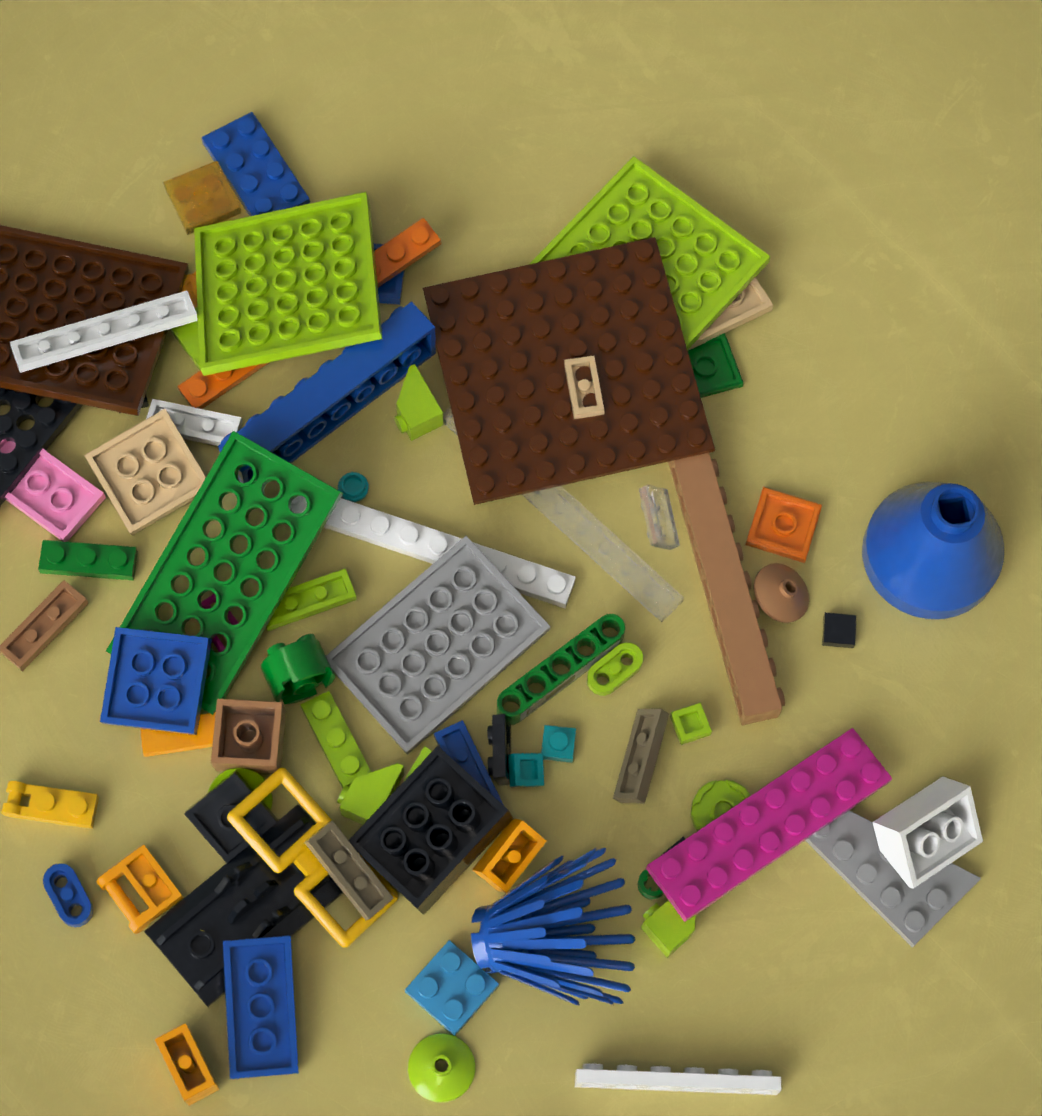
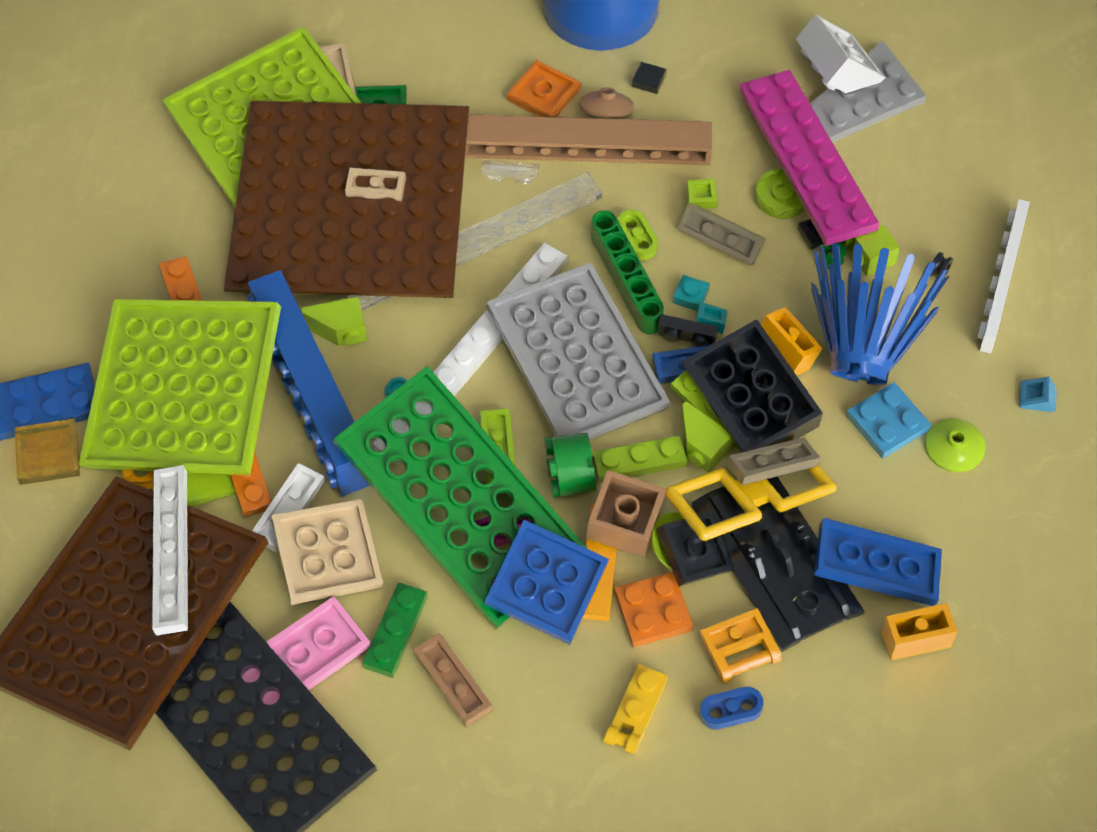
camera: 70 degrees left, 10 degrees down
(162, 794) = (653, 609): none -> orange plate
(669, 1006) = (941, 263): none -> black bush

